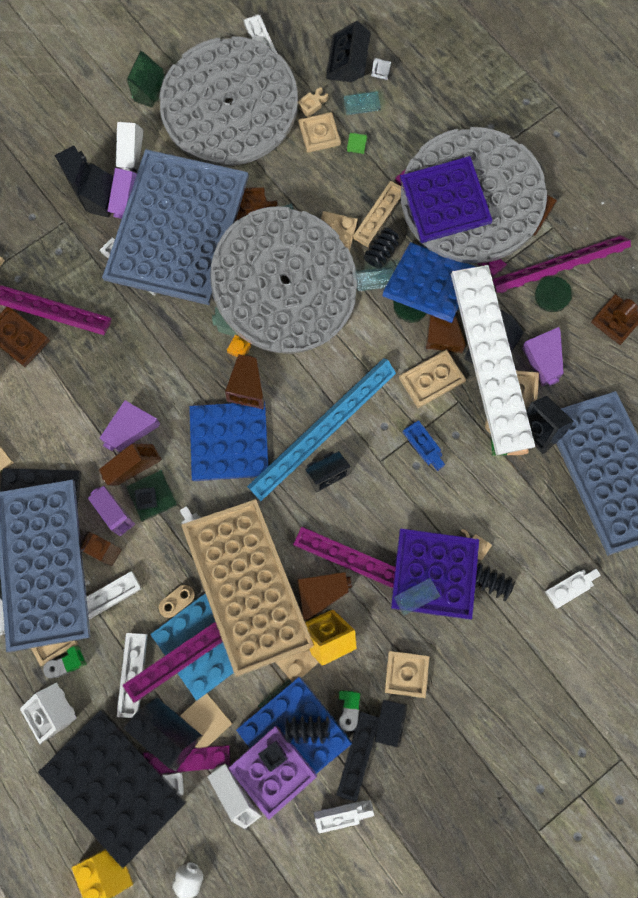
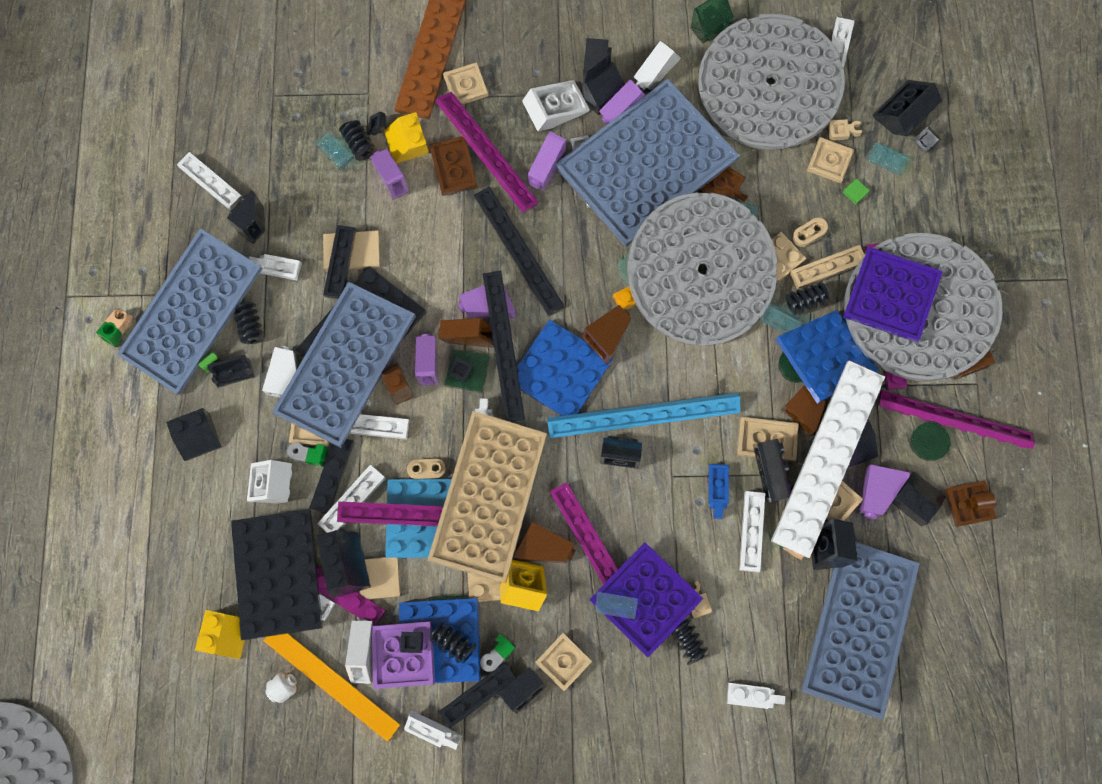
camera: 40 degrees right, 0 degrees up
(66, 231) = (554, 104): none -> white slope
(93, 284) = (544, 165): none -> medium lavender slope
(100, 668) = (331, 477): none -> black plate
(123, 368) = (519, 251): none -> black tile
(168, 453) = (503, 346): none -> black tile
(231, 842) = (334, 685): none -> light orange tile
(345, 198) = (809, 233): none -> tan plate
(455, 399) = (773, 470): none -> black slope
(475, 459) = (752, 531): none -> white plate
(580, 344) = (918, 499): none -> black slope

